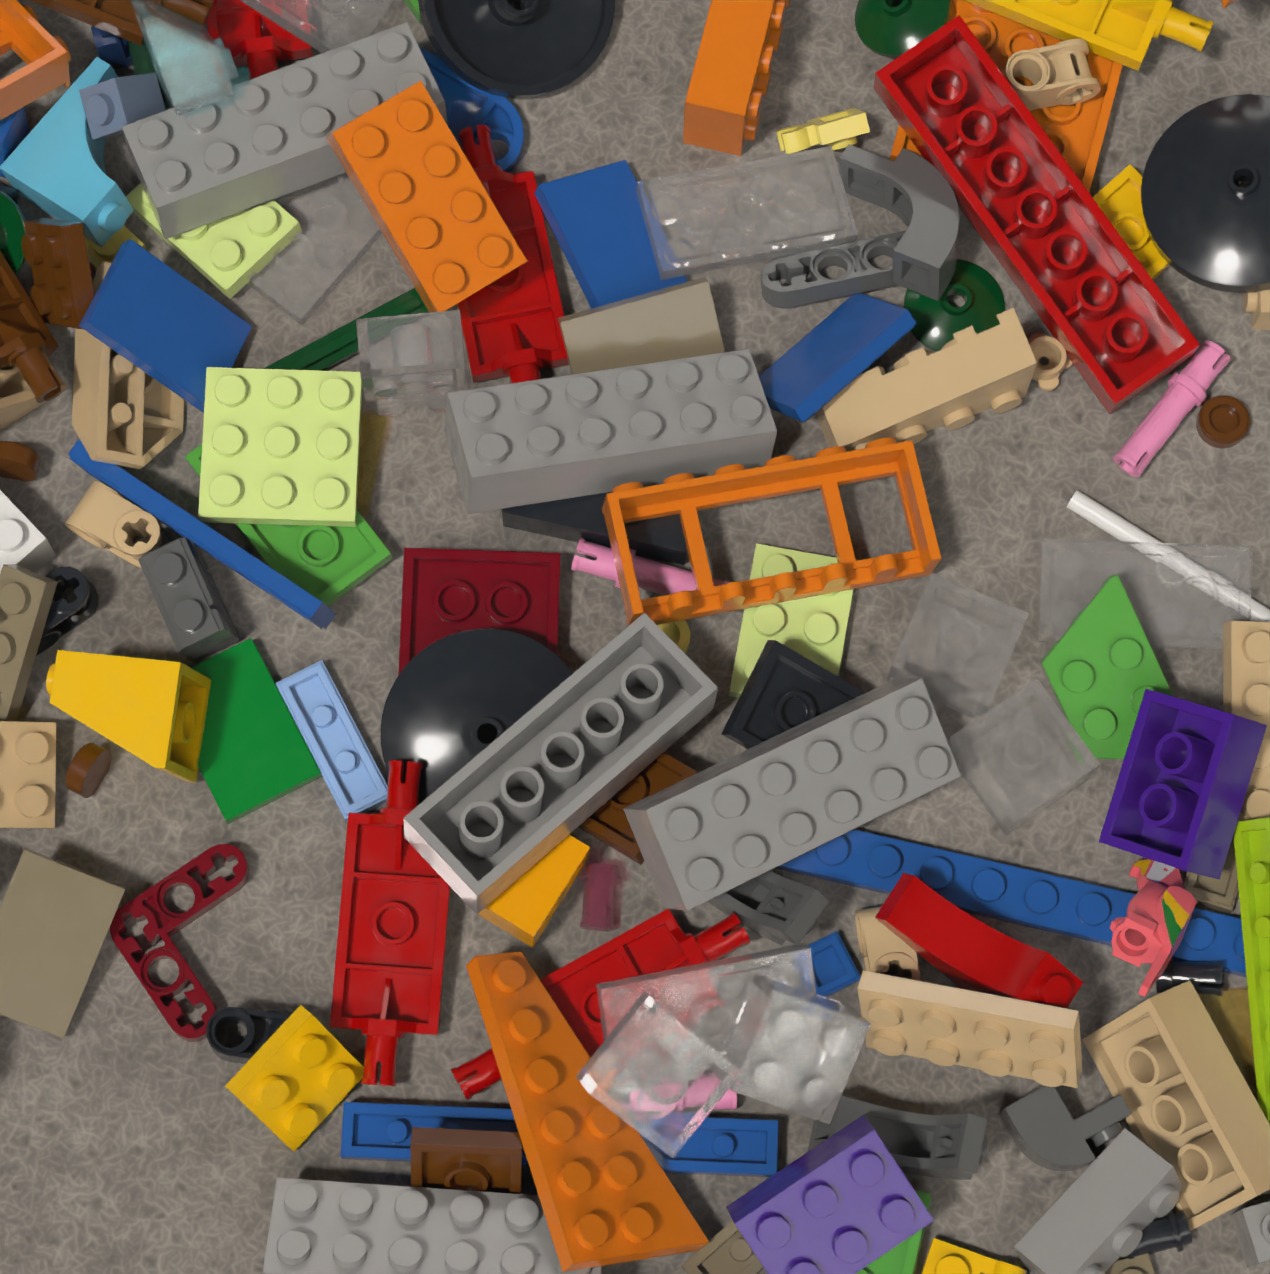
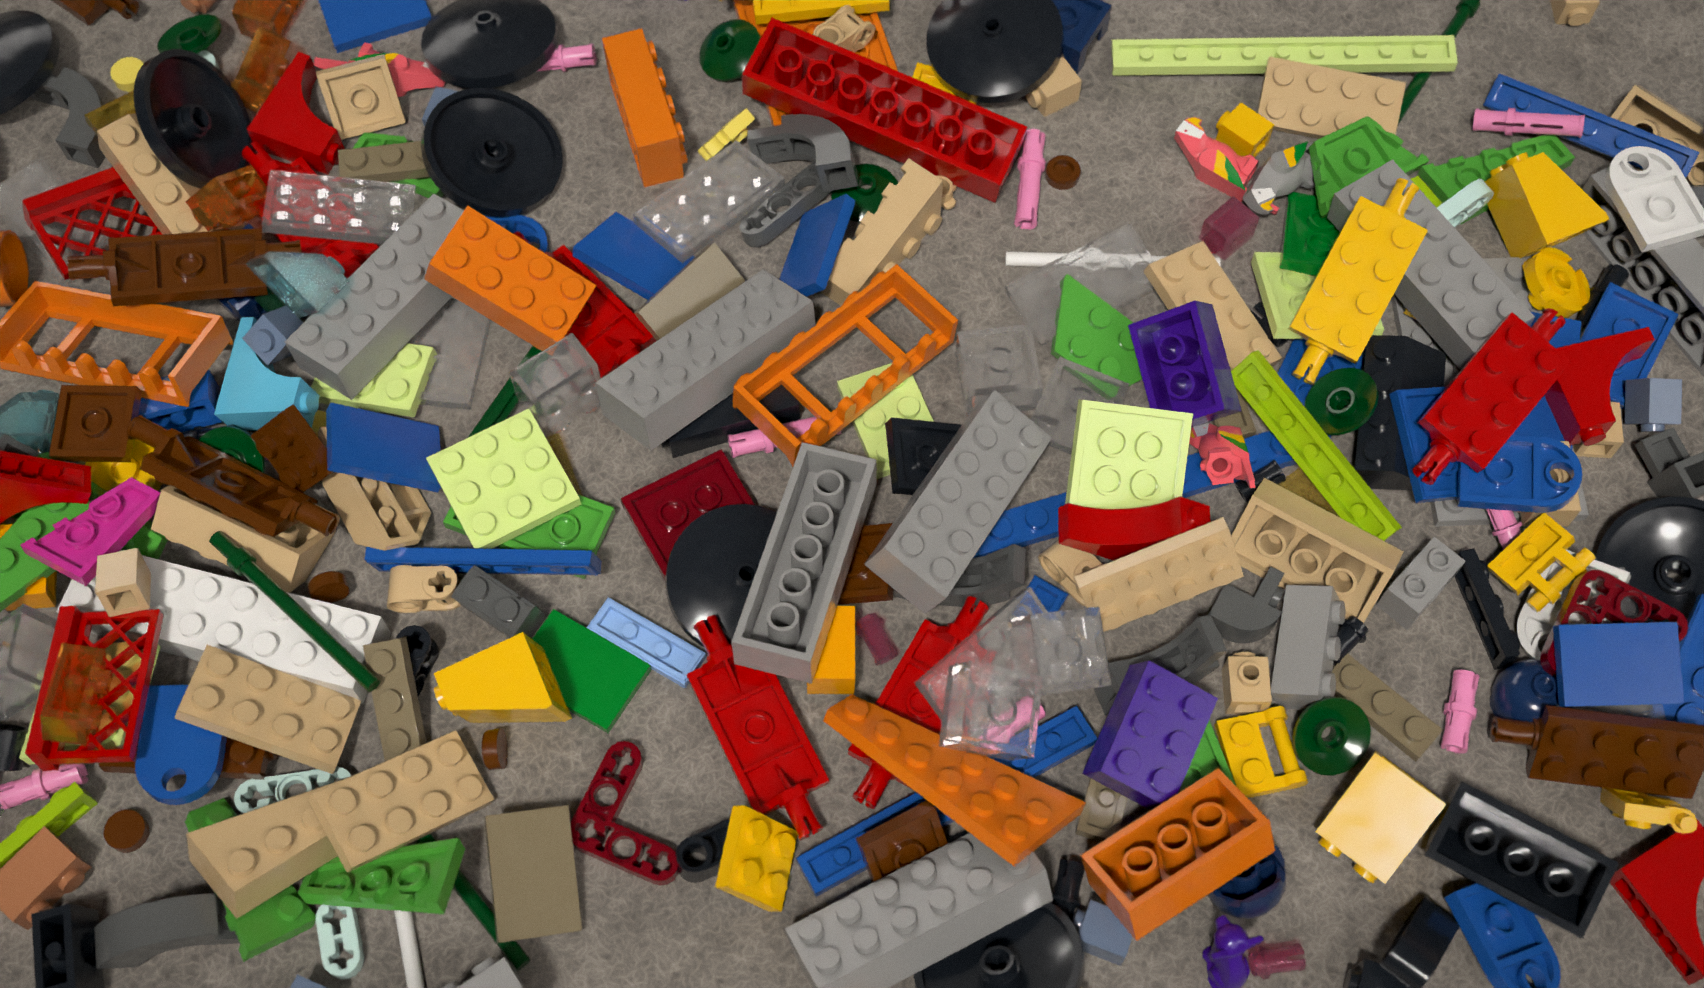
camera: 30 degrees left, 10 degrees down
(998, 1215) = (1246, 683): none -> tan brick
(1031, 860) = (1127, 456): none -> yellowish green plate

